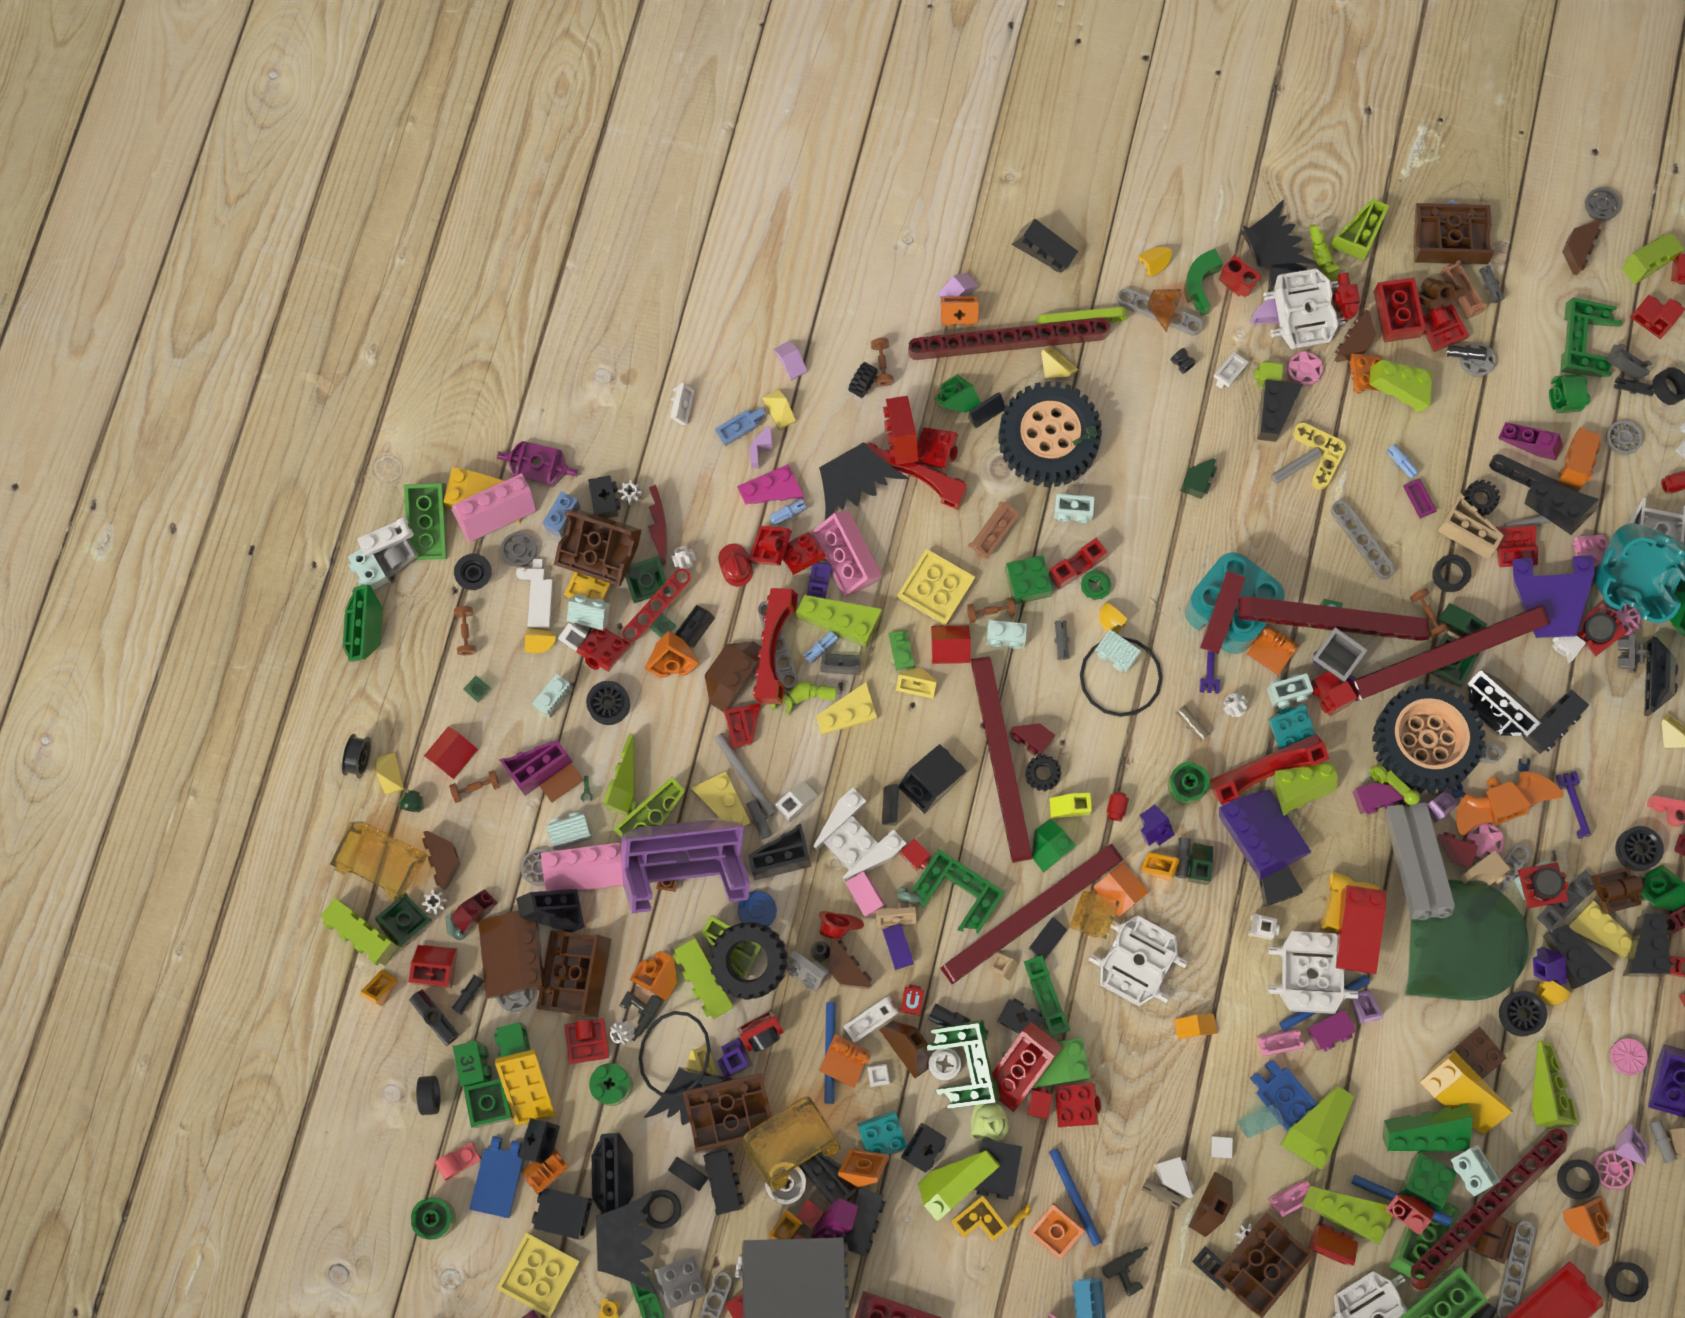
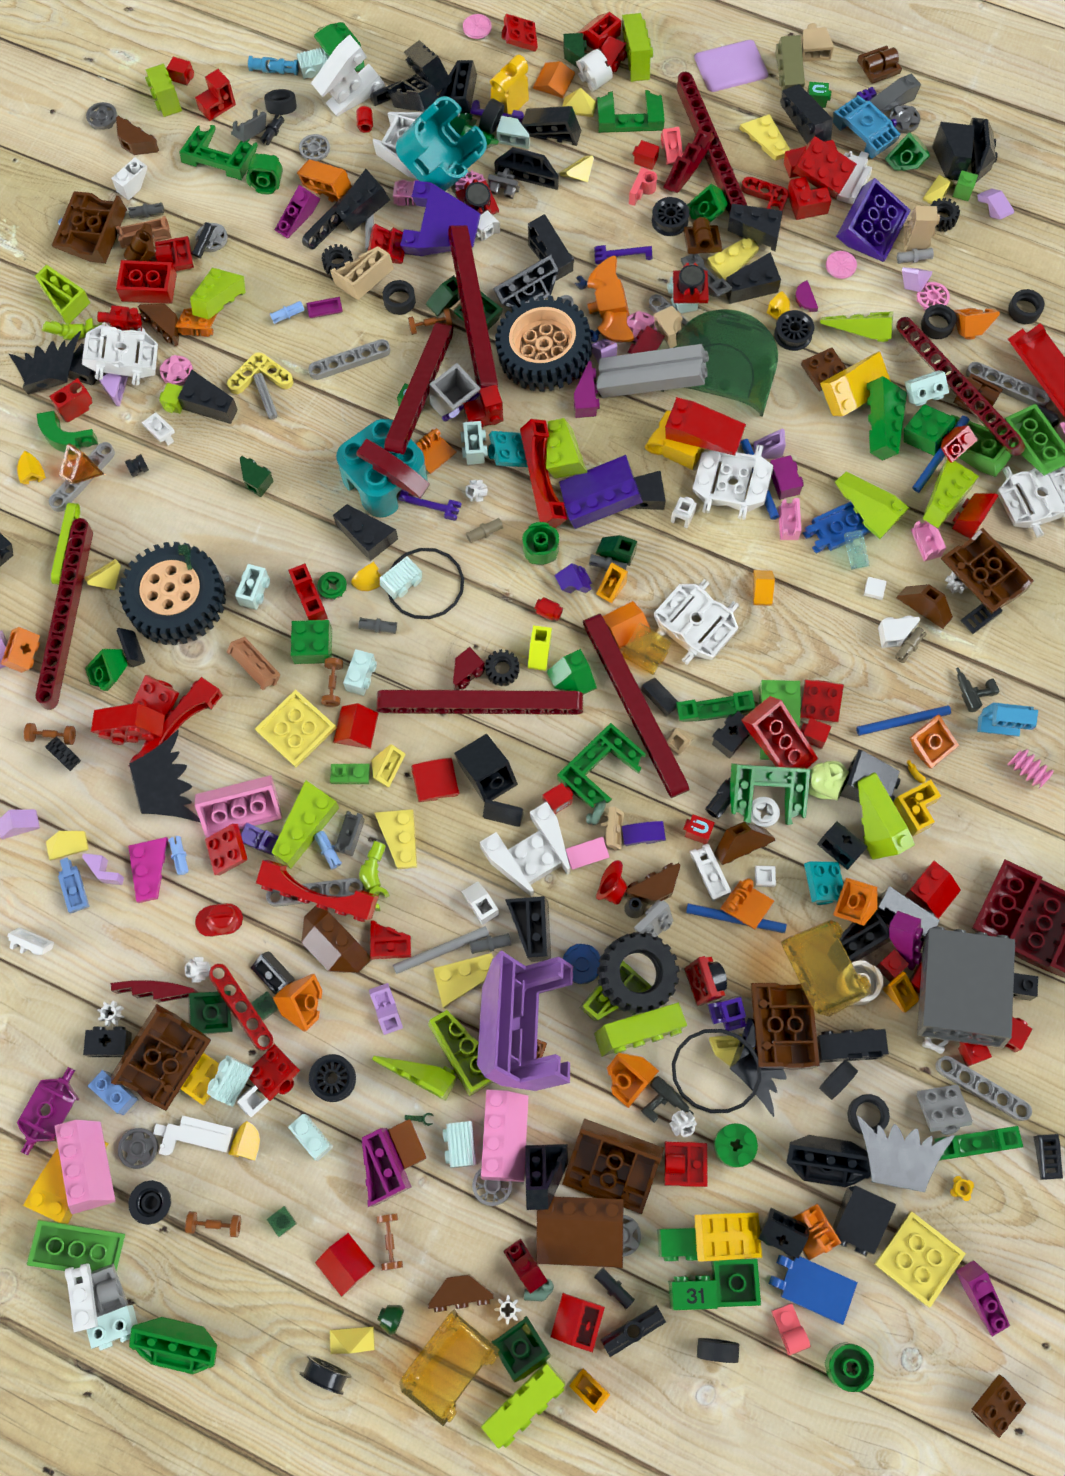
camera: 80 degrees left, 5 degrees down
(679, 737) = (386, 1008): none -> lavender slope
(770, 545) = (209, 878): red plate -> none
(895, 1249) = (934, 889): none -> red slope
(911, 732) = (435, 779): none -> red slope
(1160, 603) = (365, 531): none -> black wedge
(1381, 776) = (568, 386): lime piece -> none
(1525, 257) = (130, 178): none -> white slope
(1550, 966) = (758, 298): dark purple brick -> none
(1572, 1020) = (805, 297): none -> magenta tile

